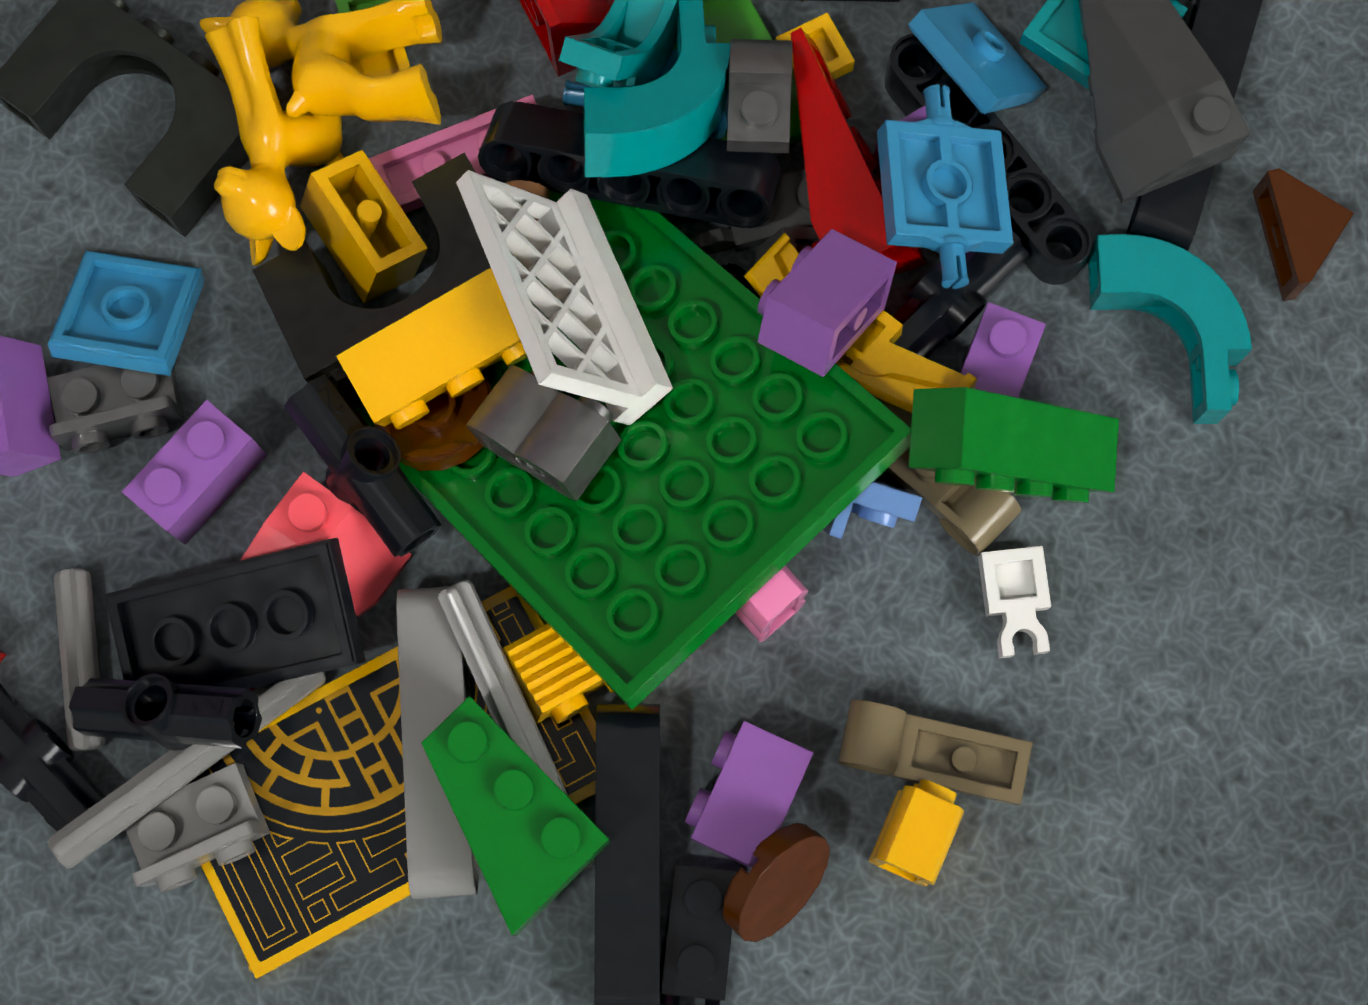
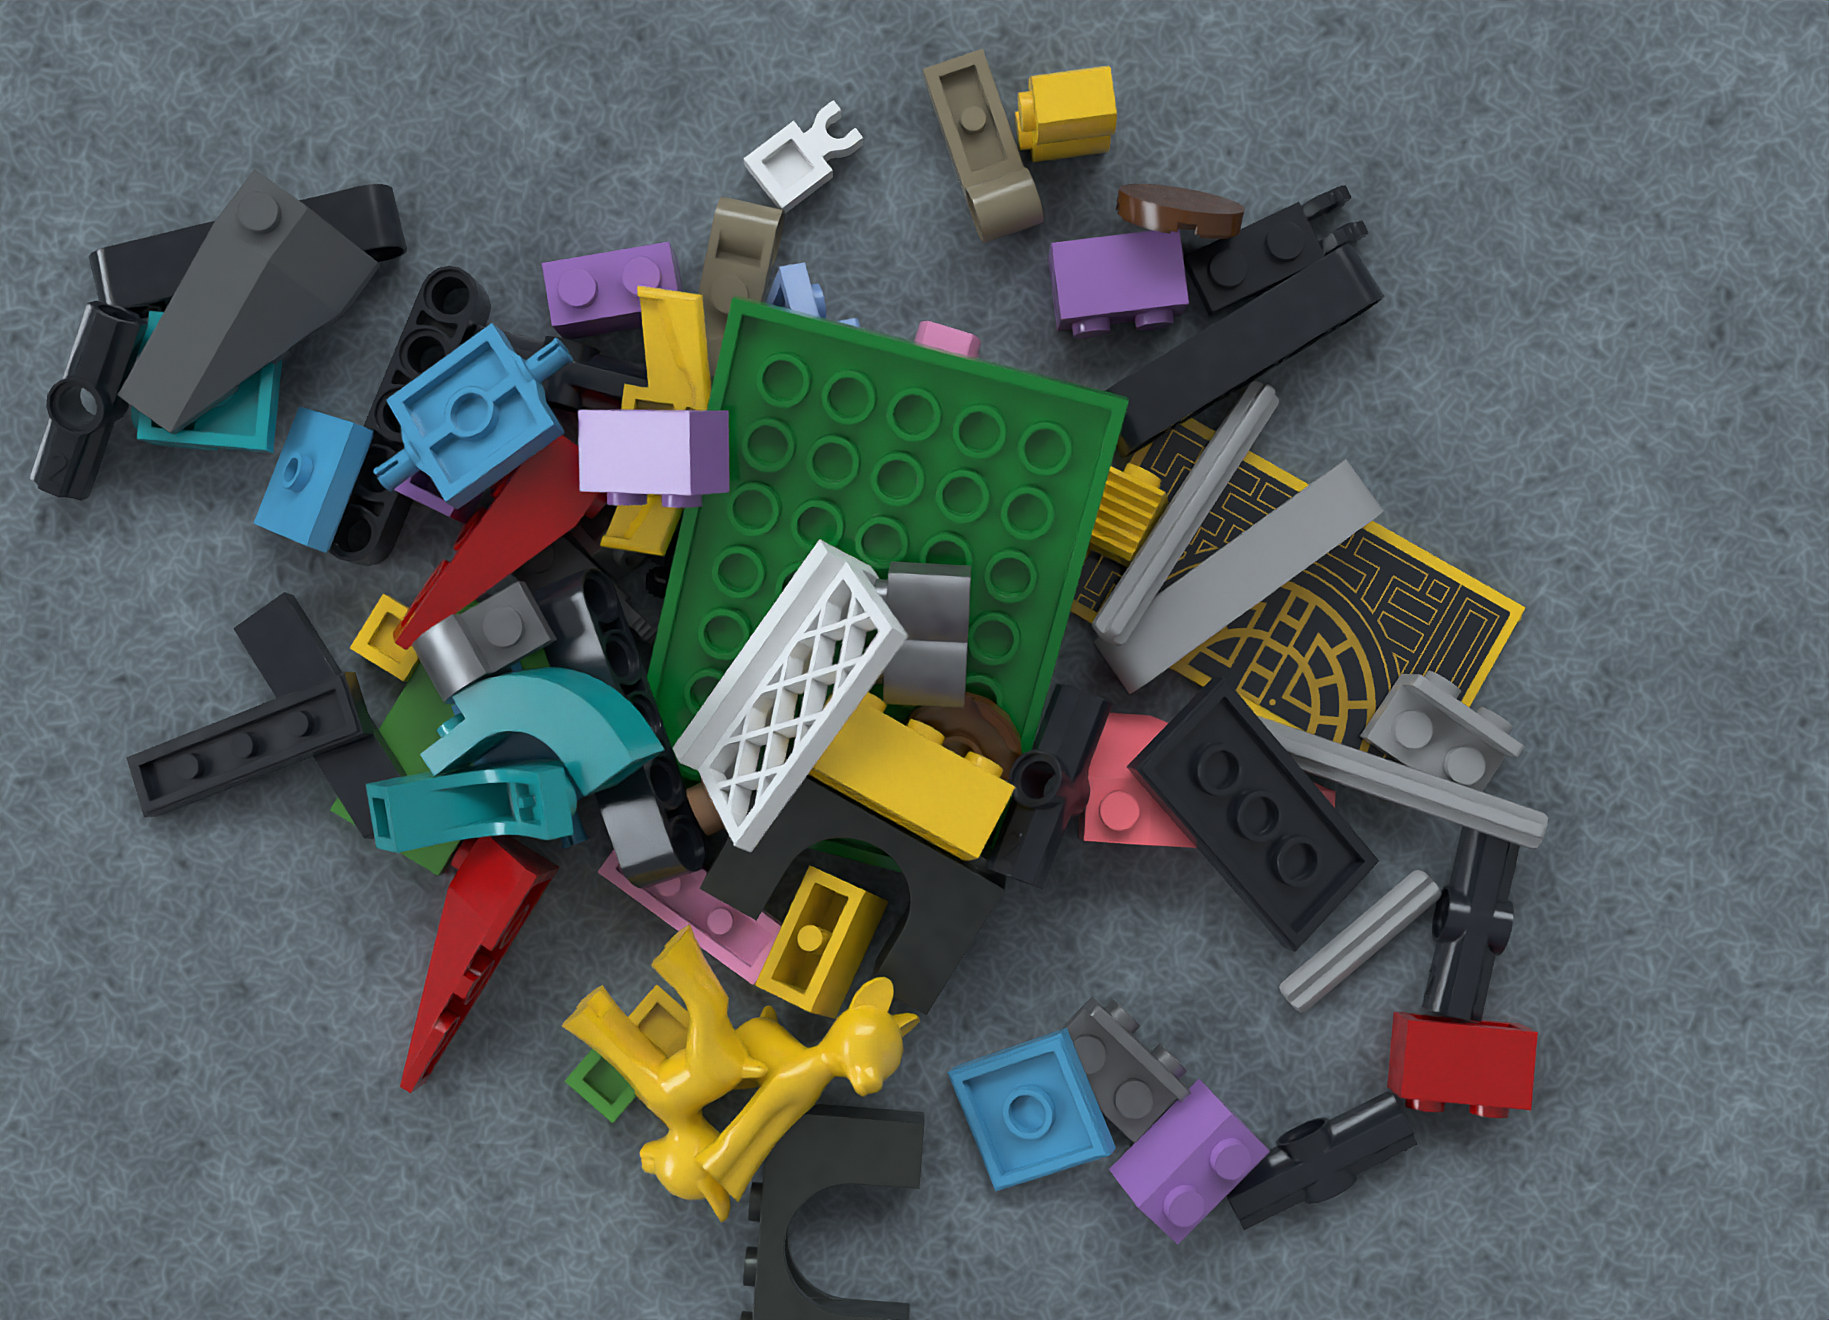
camera: 120 degrees left, 10 degrees up
(166, 712) = (1359, 789): black piece -> none
(195, 472) = (1139, 946): medium lavender brick -> none
(512, 814) = (1270, 454): green wedge -> none
(1012, 444) = (681, 218): green brick -> none
(1188, 297) = (435, 154): teal arch -> none
(1297, 228) = (307, 97): reddish brown slope -> none

